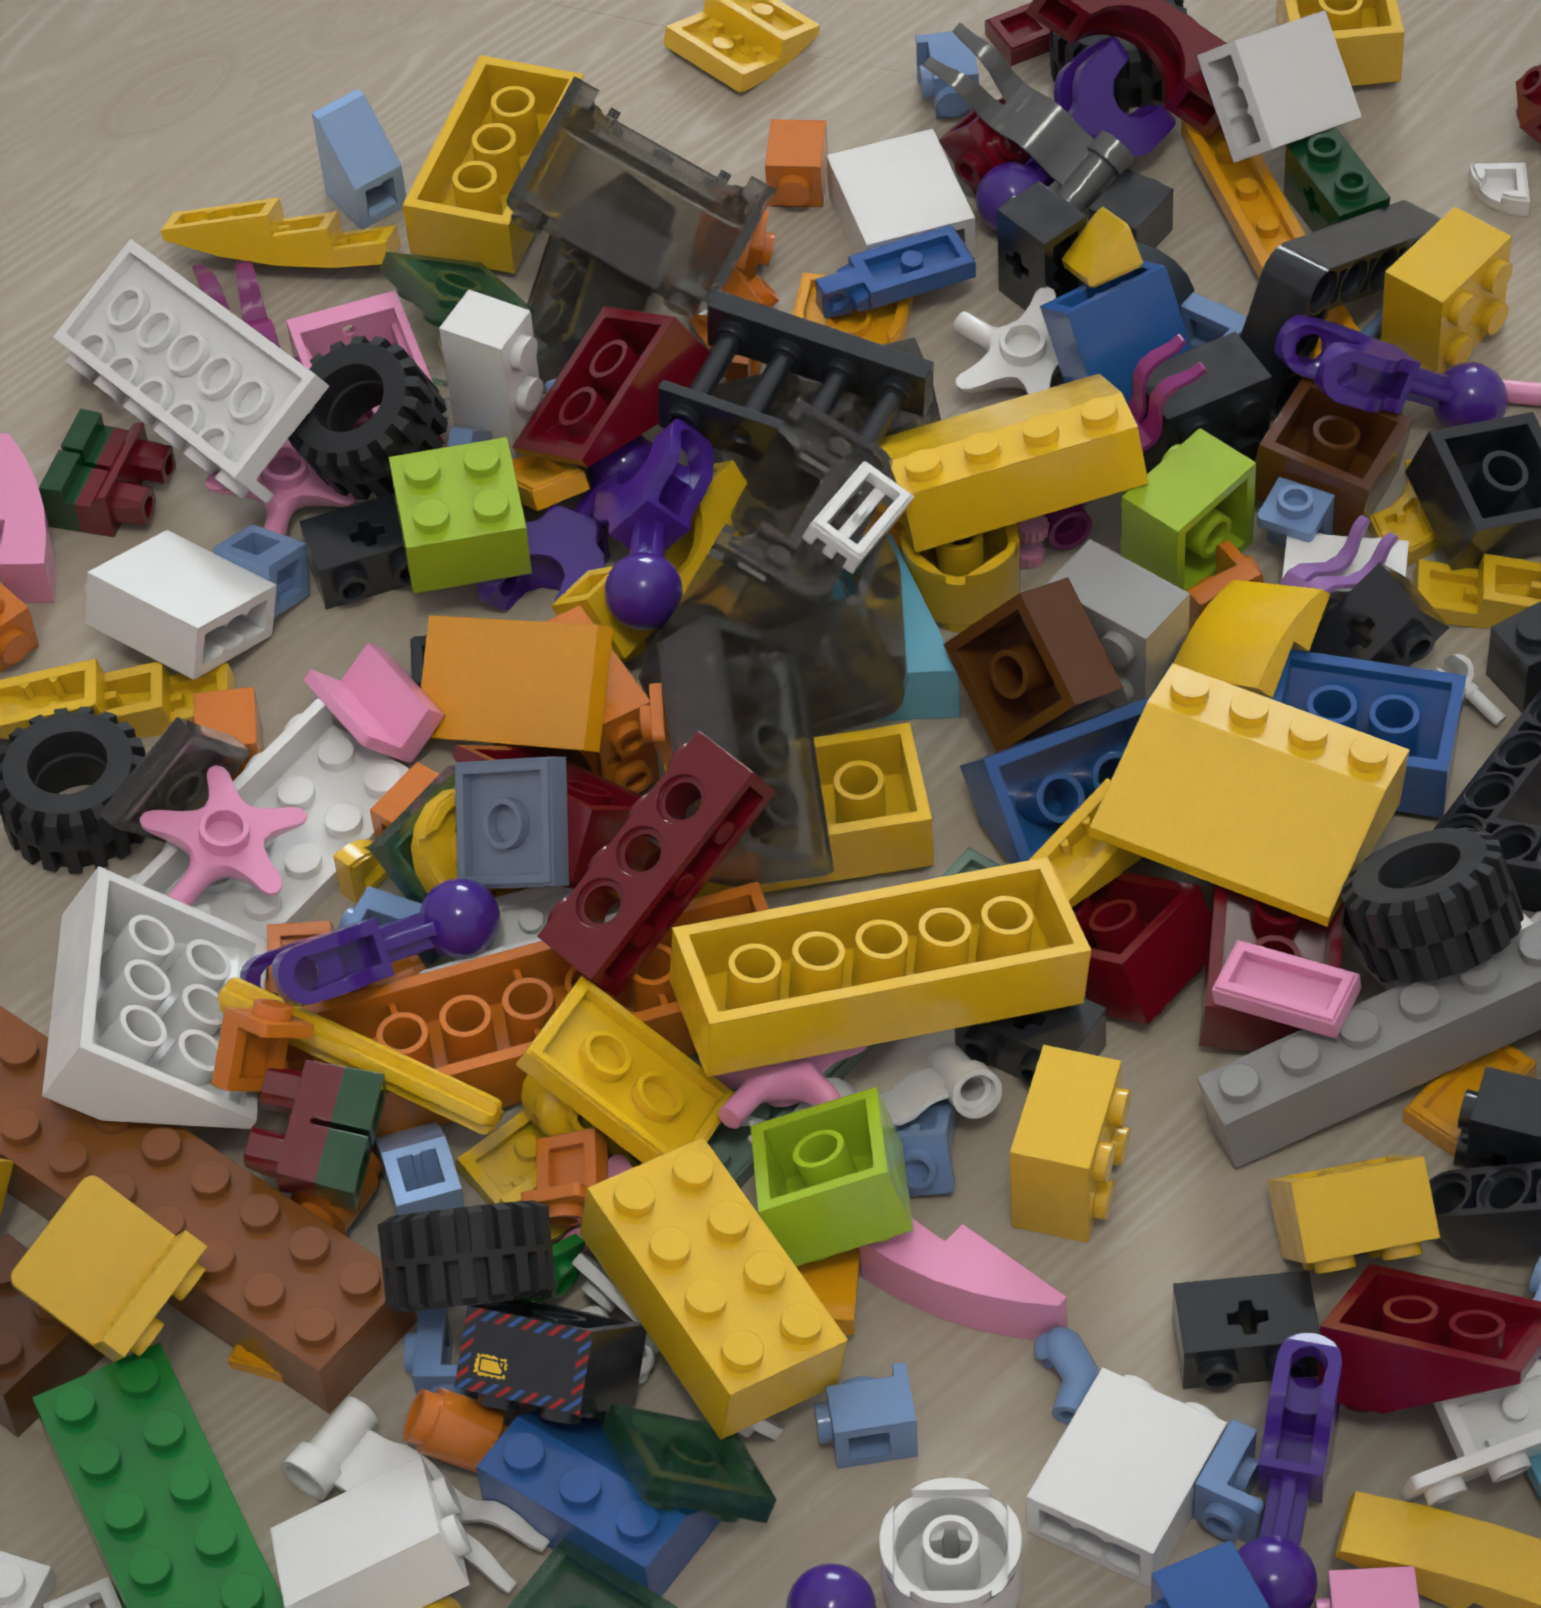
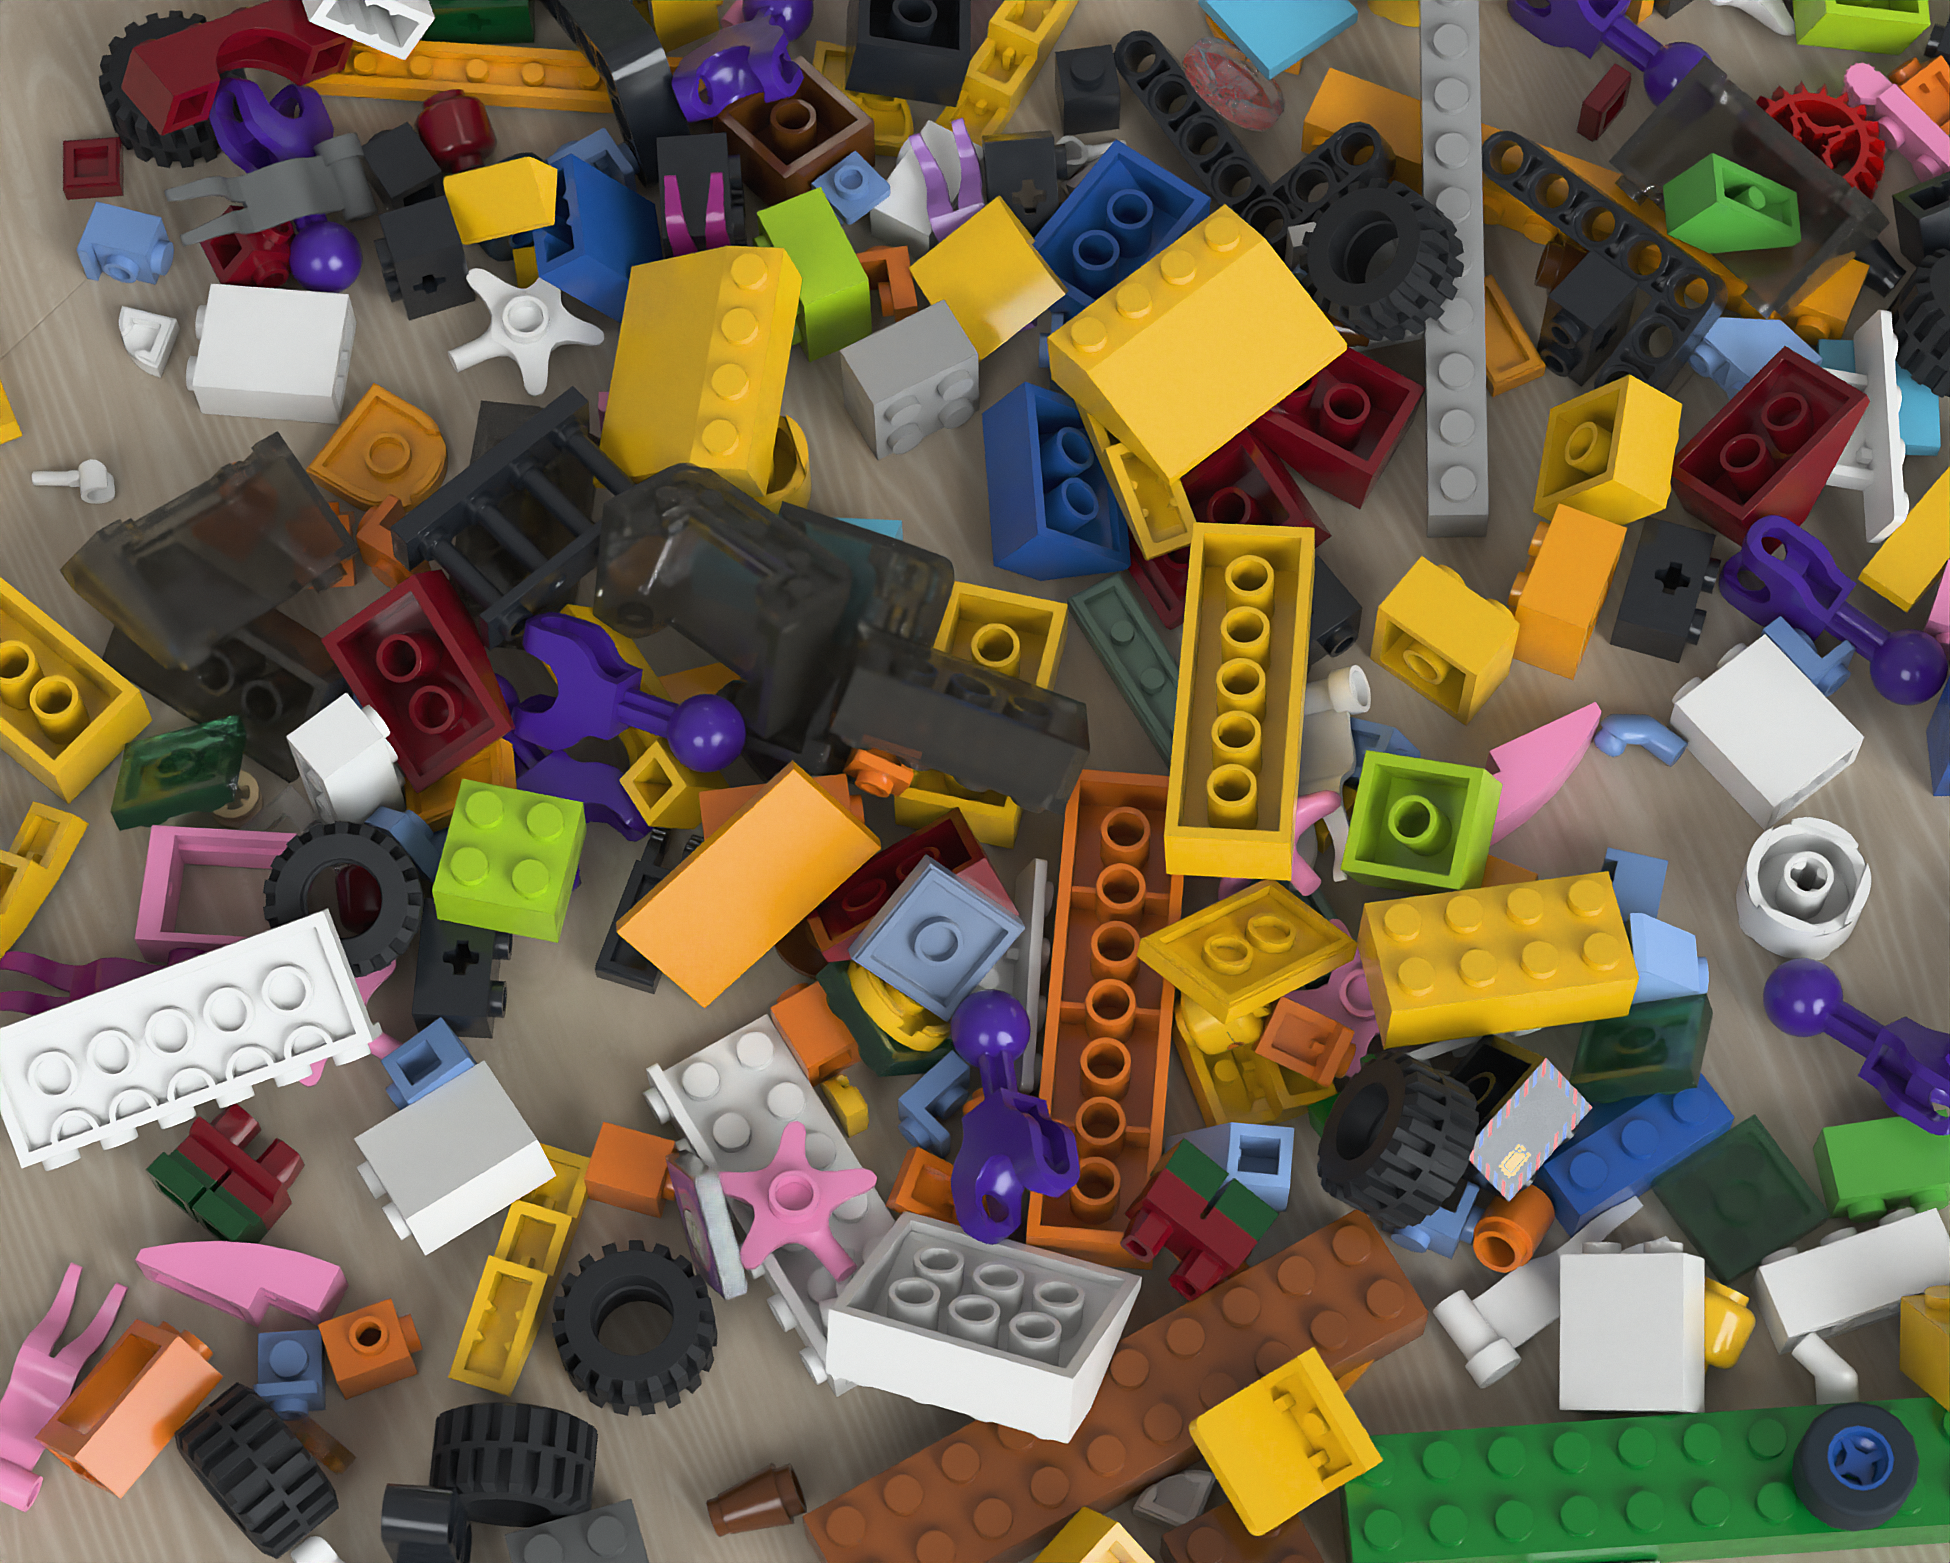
camera: 70 degrees left, 15 degrees up
(254, 1042) = (1082, 1239): orange bracket -> none
(379, 704) = (666, 1021): bright pink panel -> none
(402, 1074) = (1121, 1161): yellow axle -> none
(689, 856) = (1121, 910): dark red brick -> none
(714, 149) = (92, 477): none -> white hand
(794, 1451) = (1664, 960): none -> light blue slope
(797, 162) = (165, 419): orange brick -> none
(840, 540) = (760, 514): white tile -> none
(877, 126) = (148, 338): none -> white tile
(895, 272) = (372, 386): blue hinge -> none
(1033, 664) = (940, 457): reddish brown brick -> none
(1177, 1223) = (1564, 588): none -> light orange brick
(1195, 233) = (456, 131): none -> dark red head
(1286, 989) = (1396, 406): bright pink tile -> none

